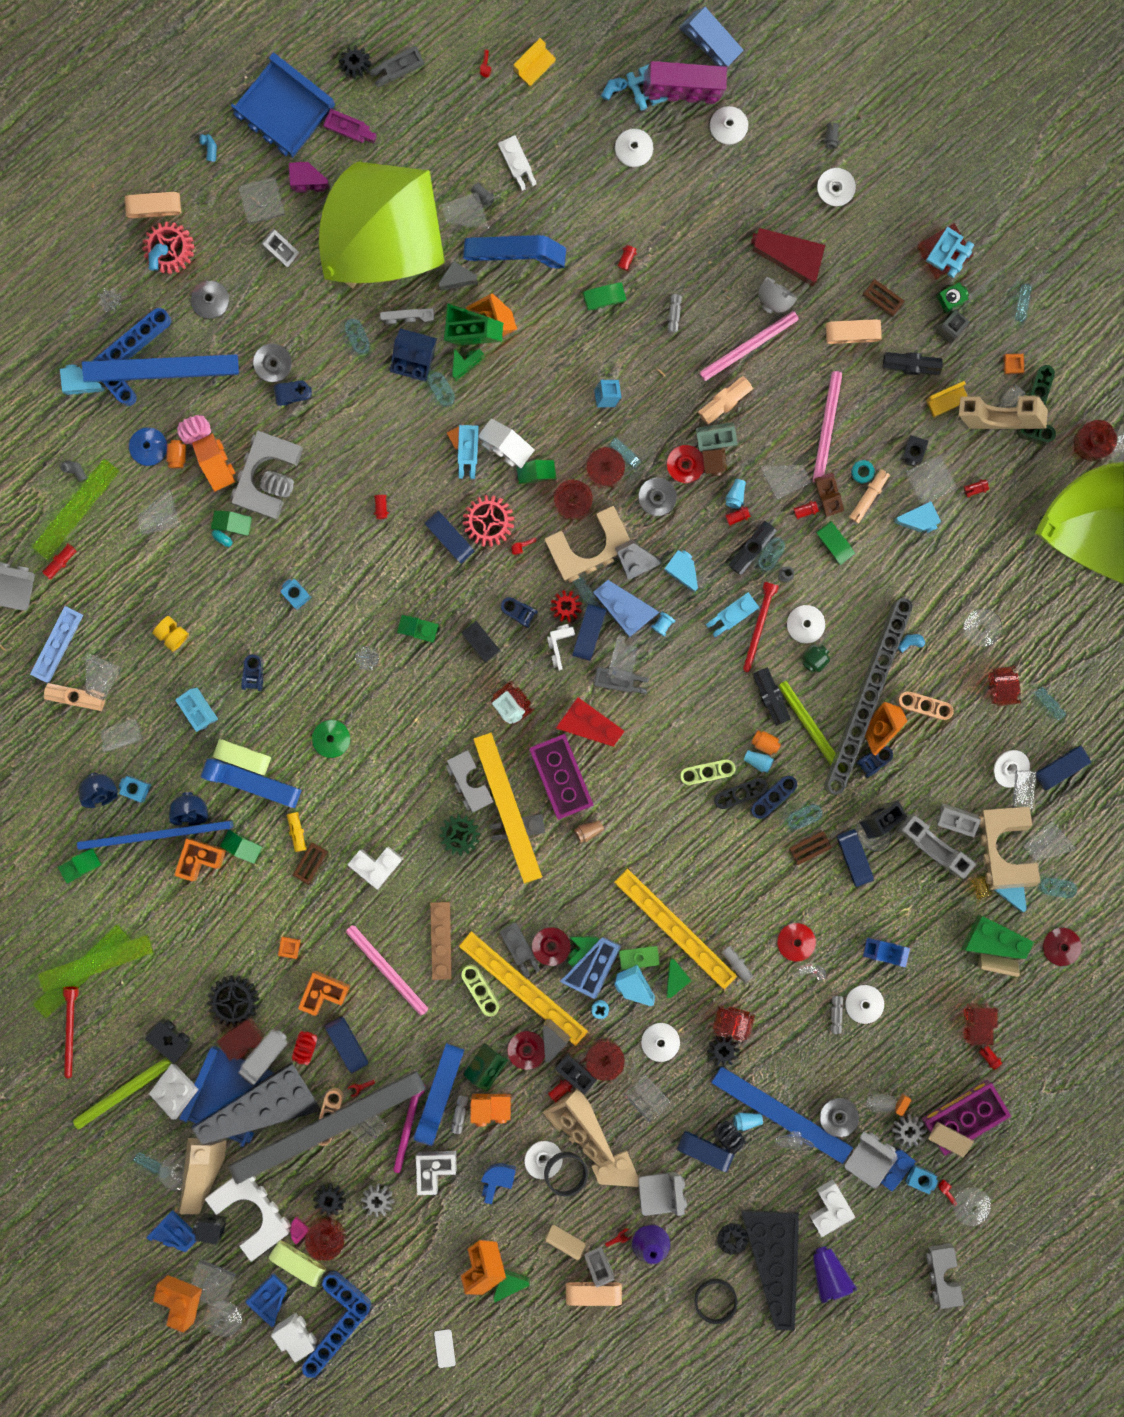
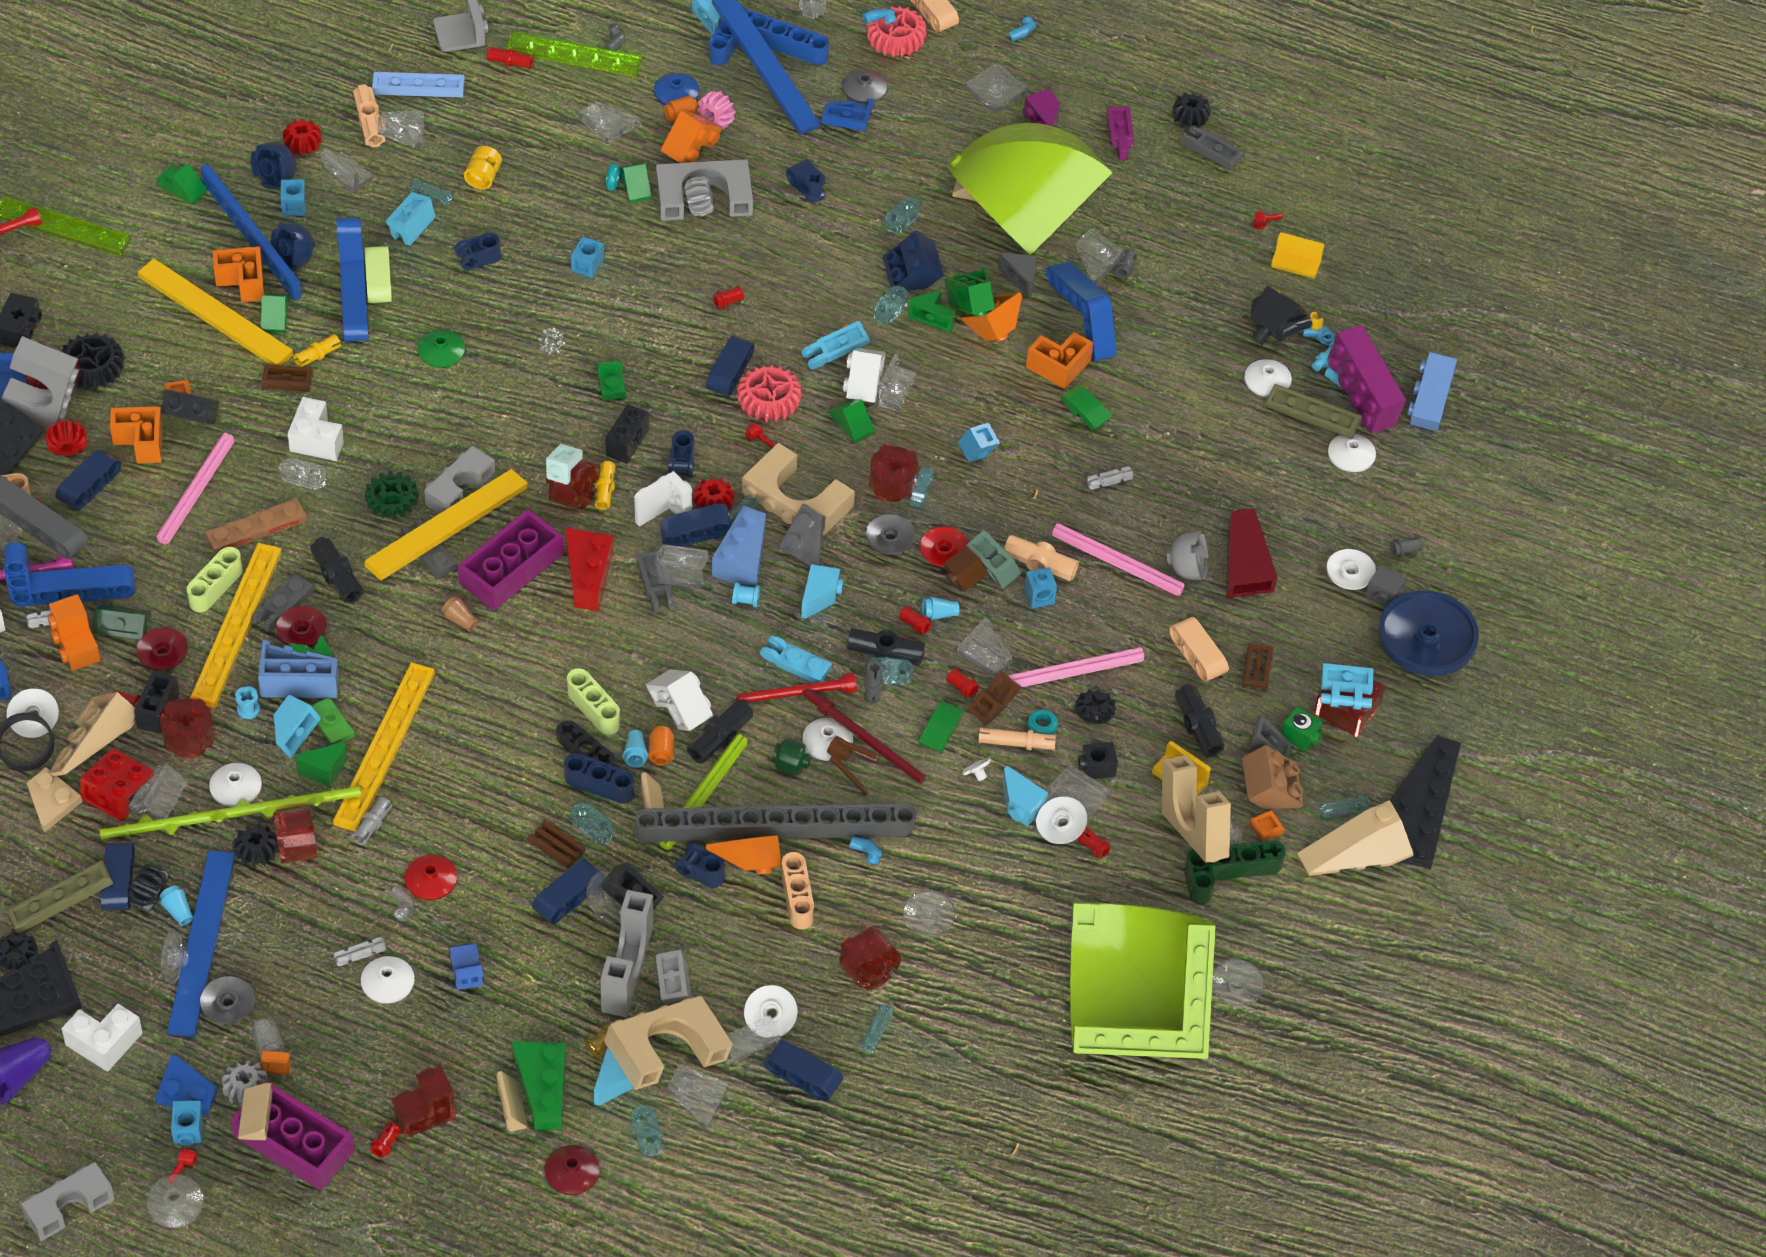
camera: 60 degrees right, 35 degrees down
(68, 754) = (302, 137): none -> red gear
(95, 963) = (78, 228): clear neon green tile -> none
(172, 681) = (431, 191): none -> clear light blue axle
(223, 891) = (215, 313): none -> yellow tile
(238, 327) = (848, 114): none -> blue wing
(265, 356) = (829, 152): flat silver dish -> none
(279, 248) = (955, 114): light grey slope -> none
(283, 106) = (1104, 72): blue panel -> none
(314, 947) = (190, 406): none -> black brick
(407, 888) = (300, 473): none -> clear plate
(408, 316) = (952, 244): light grey hinge -> none
(510, 901) = (336, 570): none -> black piece
(516, 161) = (1181, 281): white hinge -> none
(518, 678) = (605, 485): none -> yellow pin
(522, 424) = (894, 385): none -> clear panel
(554, 1039) = (188, 665): dark grey slope -> none
(561, 295) = (1058, 362): none -> orange brick
(577, 490) = (839, 455): clear red brick -> none
(590, 111) = (1279, 316): none -> black torso
(627, 257) = (1145, 411): red pin -> none
(629, 1124) = (112, 782): none -> red bracket
(662, 1194) = (42, 847): light grey bracket -> none
(684, 133) = (1313, 411): none -> olive tile
(687, 1047) = (242, 808): none -> lime plant
(708, 1197) = (60, 897): none -> olive tile
(735, 712) = (682, 696): none -> white brick
(753, 415) = (1040, 587): none -> dark azure brick
(785, 614) = (826, 707): none -> dark red bar
(808, 768) = (651, 793): none -> tan slope
(827, 622) = (842, 749): none -> reddish brown plant
(858, 433) = (1090, 713): none -> black gear
(864, 171) = (1385, 586): none -> dark grey brick
(871, 1160) = (188, 1053): light grey bracket -> none
(880, 536) = (978, 769): none -> white plant
(918, 165) = (1428, 633): none -> dark blue dish
(958, 508) = (1058, 811): none -> white dish
(984, 341) = (1272, 779): none -> medium nougat slope
(1049, 257) = (1424, 797): none -> black wing
(1065, 308) = (1364, 841): none -> tan wedge
(1105, 436) = (1233, 935): clear red brick -> none

